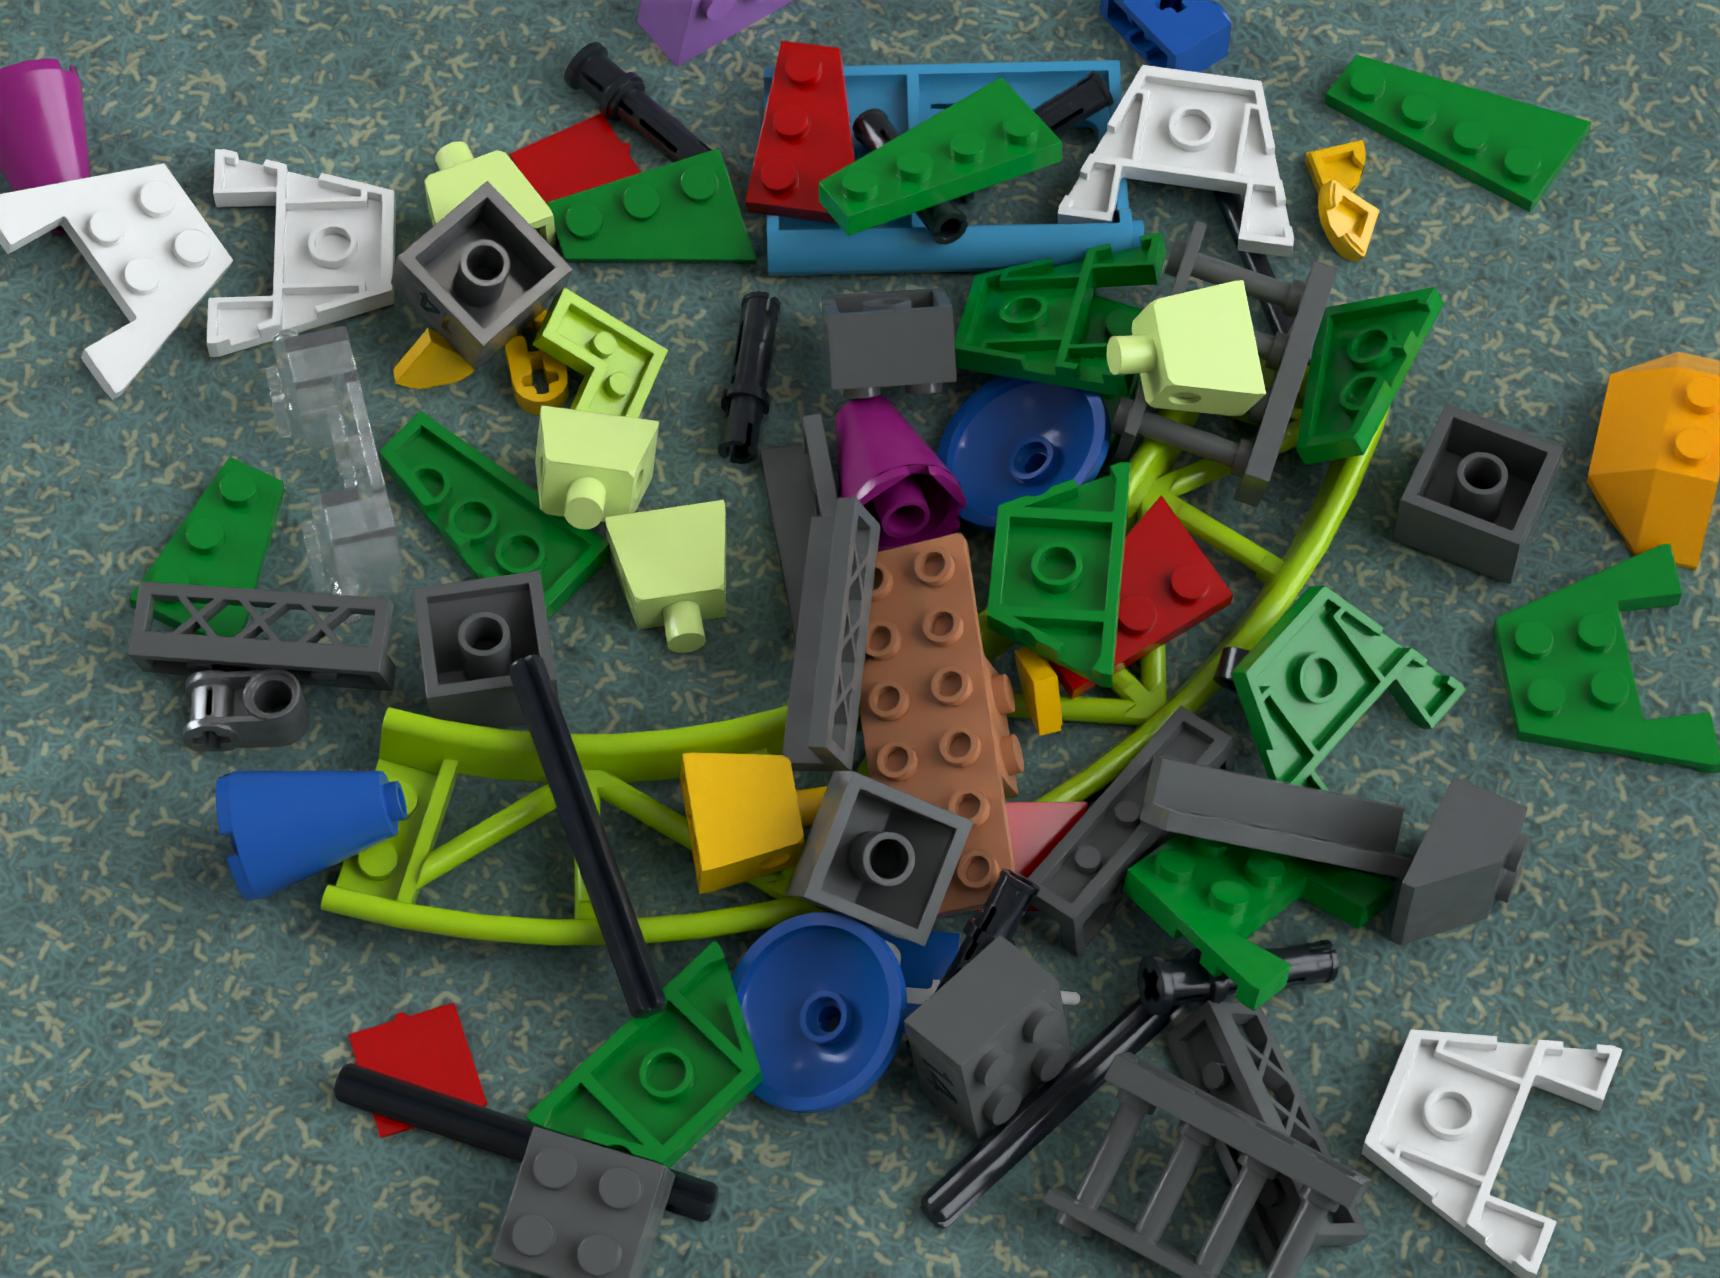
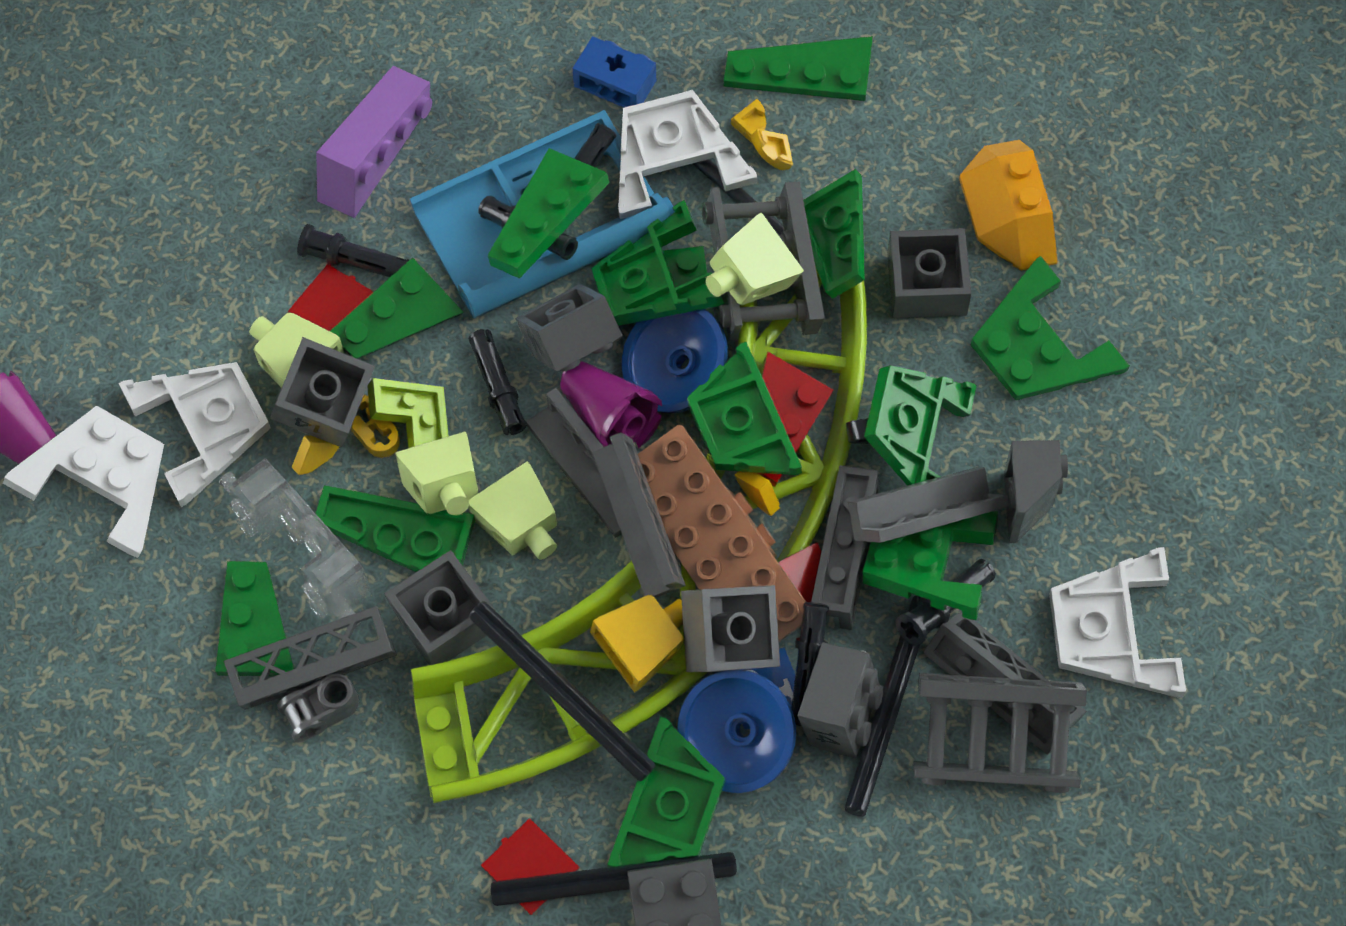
camera: 25 degrees left, 5 degrees up
(302, 822) = (396, 757): blue cone -> none
(802, 133) = (455, 229): red wing -> none

